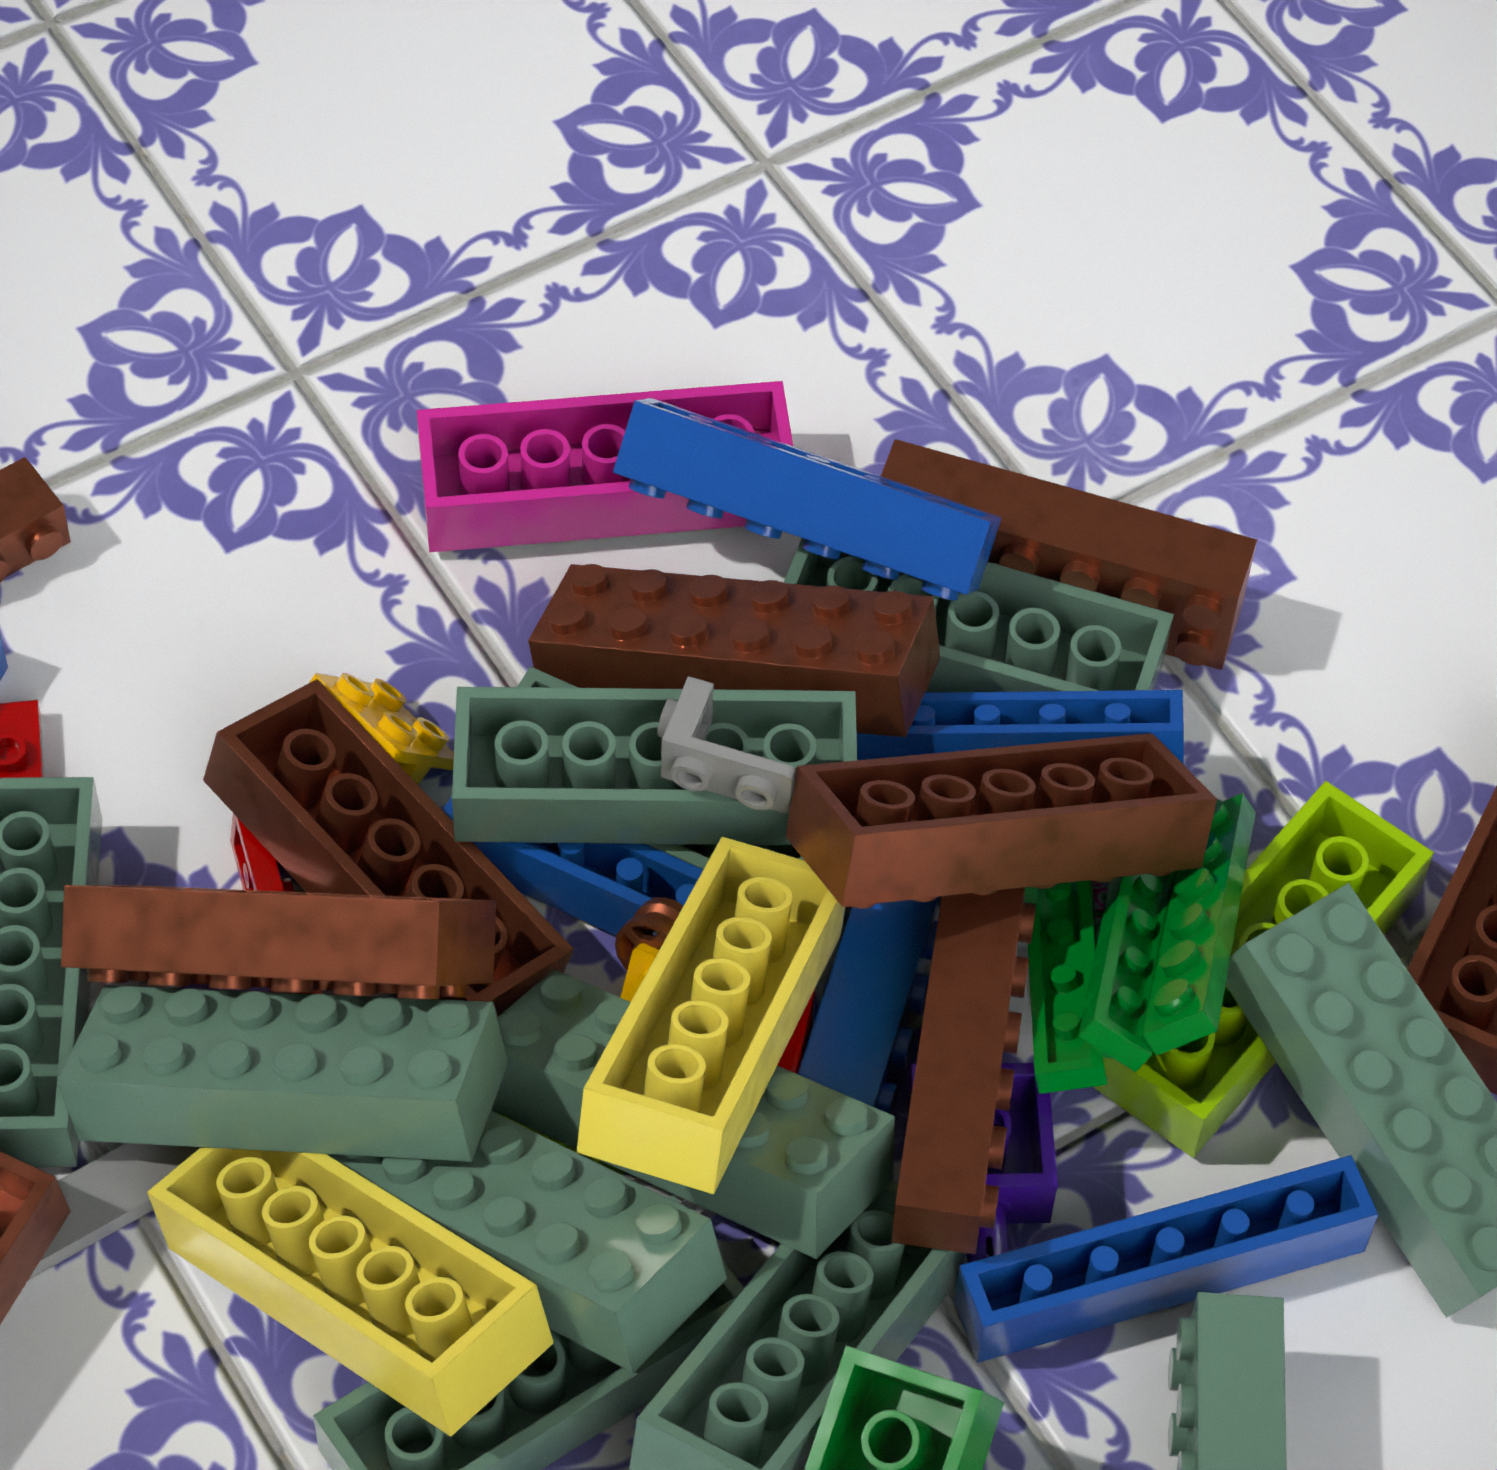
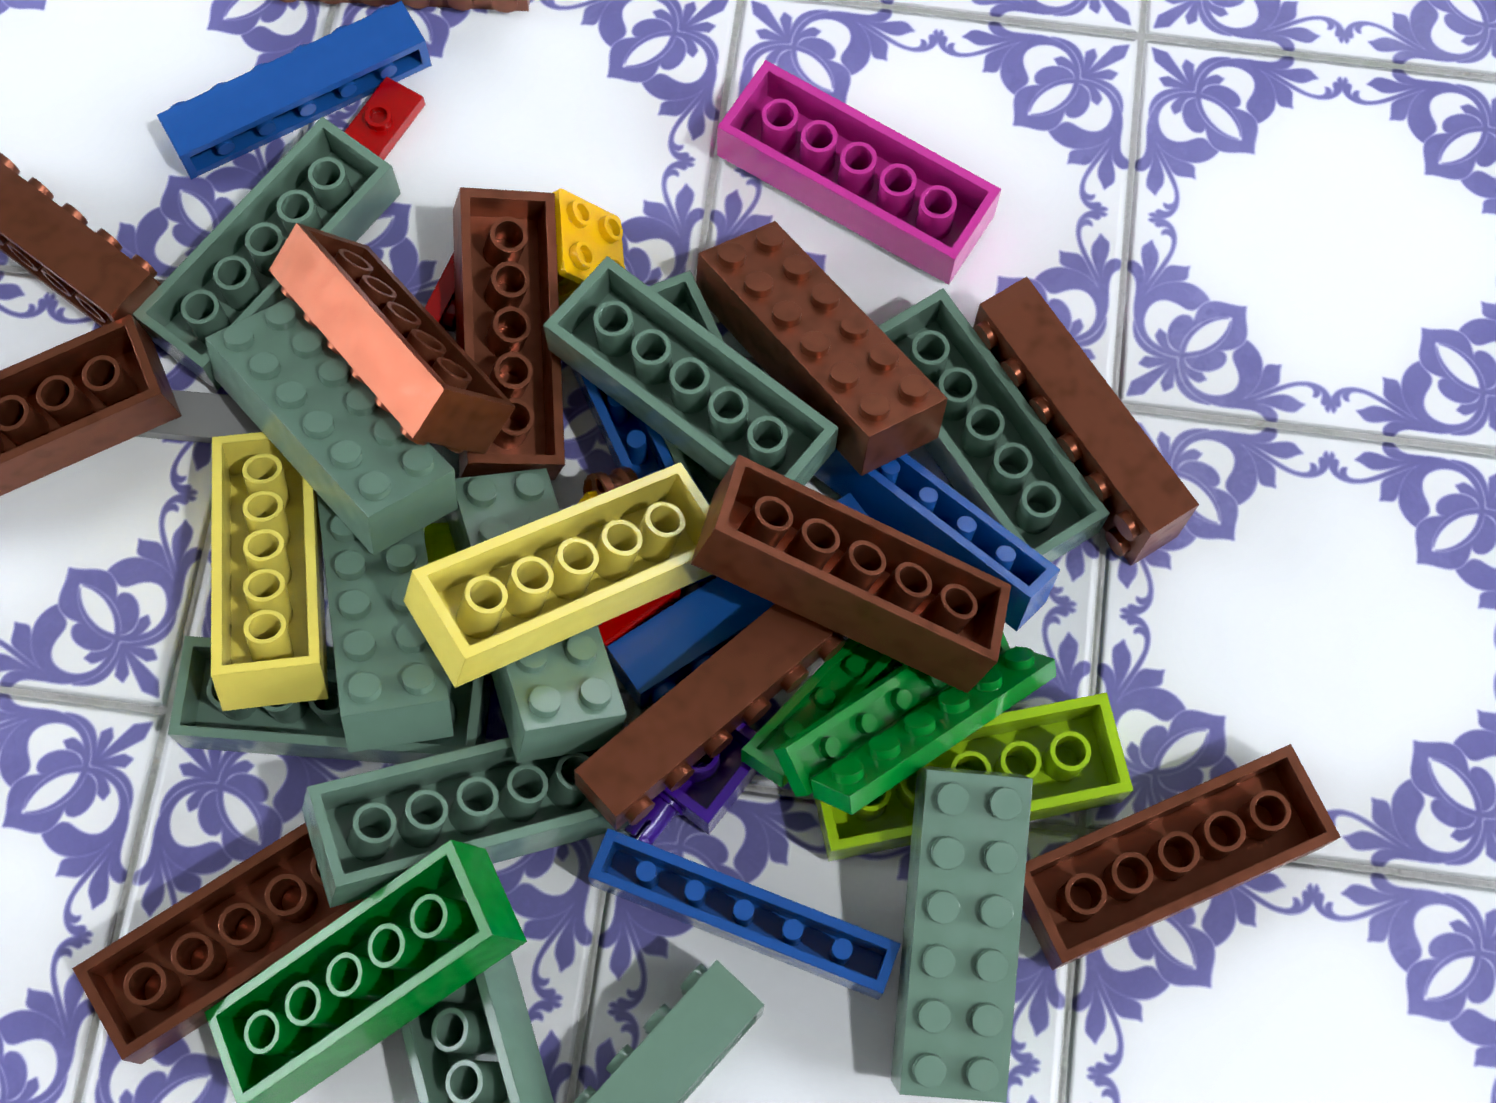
camera: 40 degrees right, 15 degrees up
(713, 767) = (699, 383): light grey bracket -> none
(807, 497) = (935, 278): blue brick -> none

